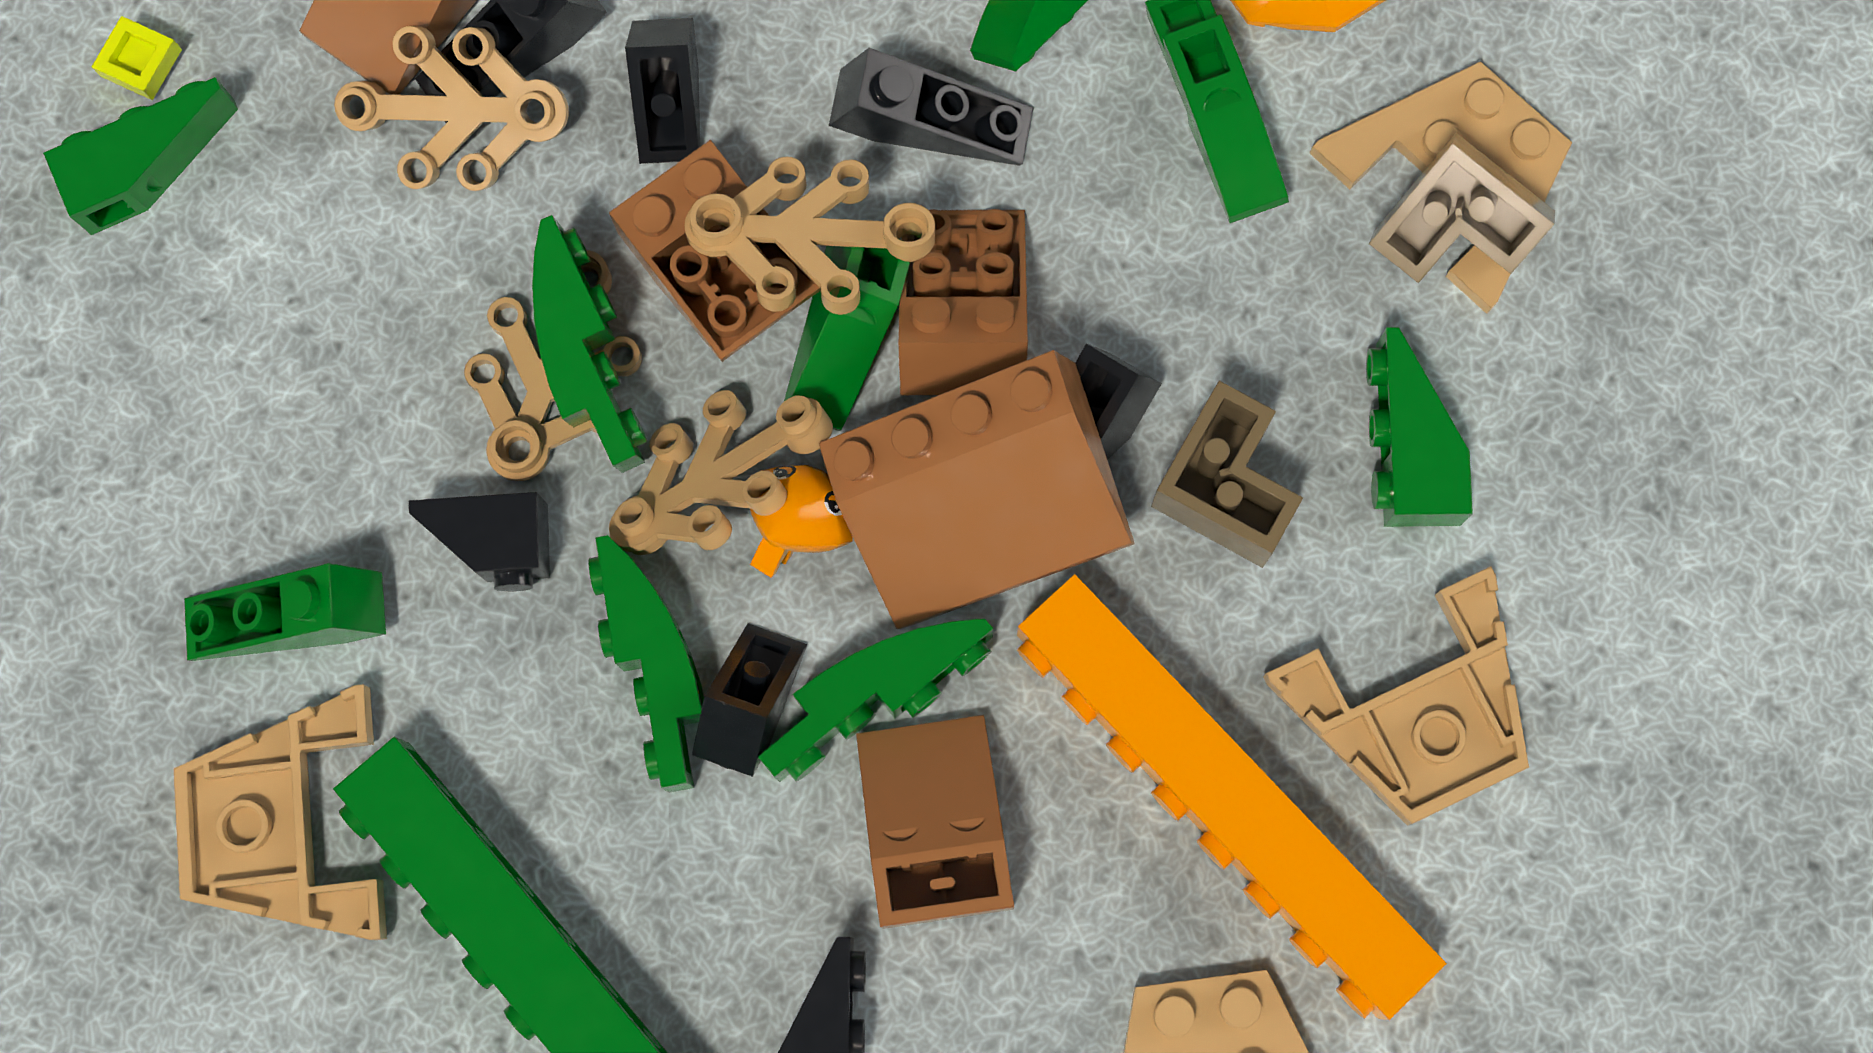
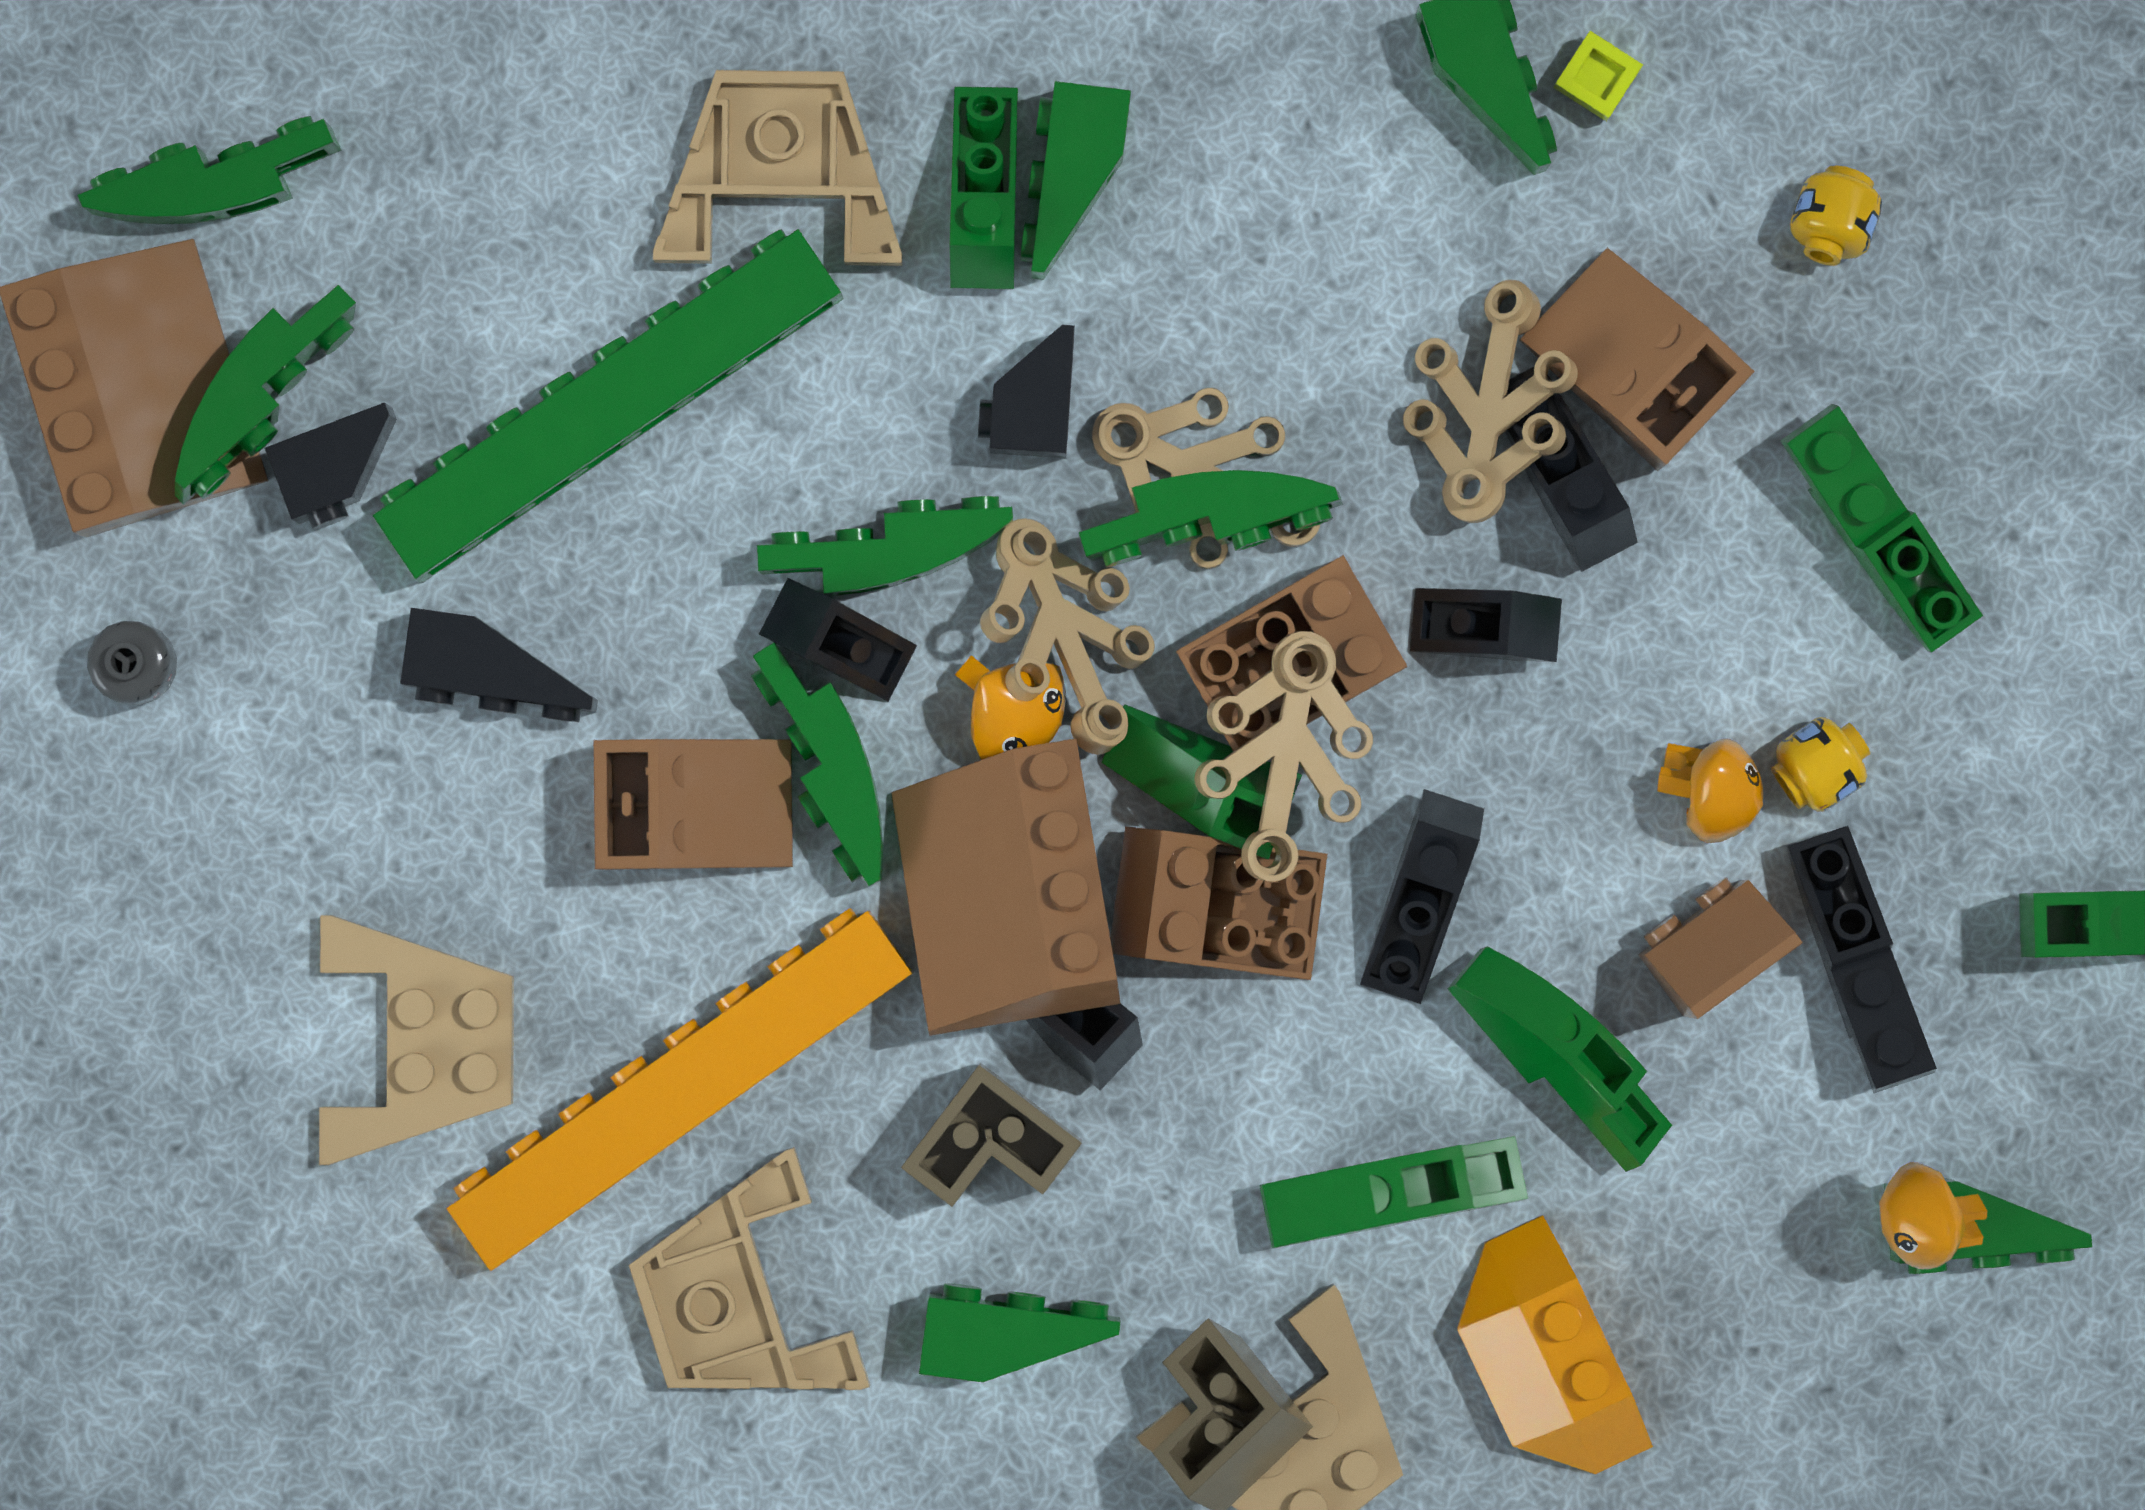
camera: 90 degrees right, 10 degrees up
(234, 522) = (1082, 155): none -> green slope

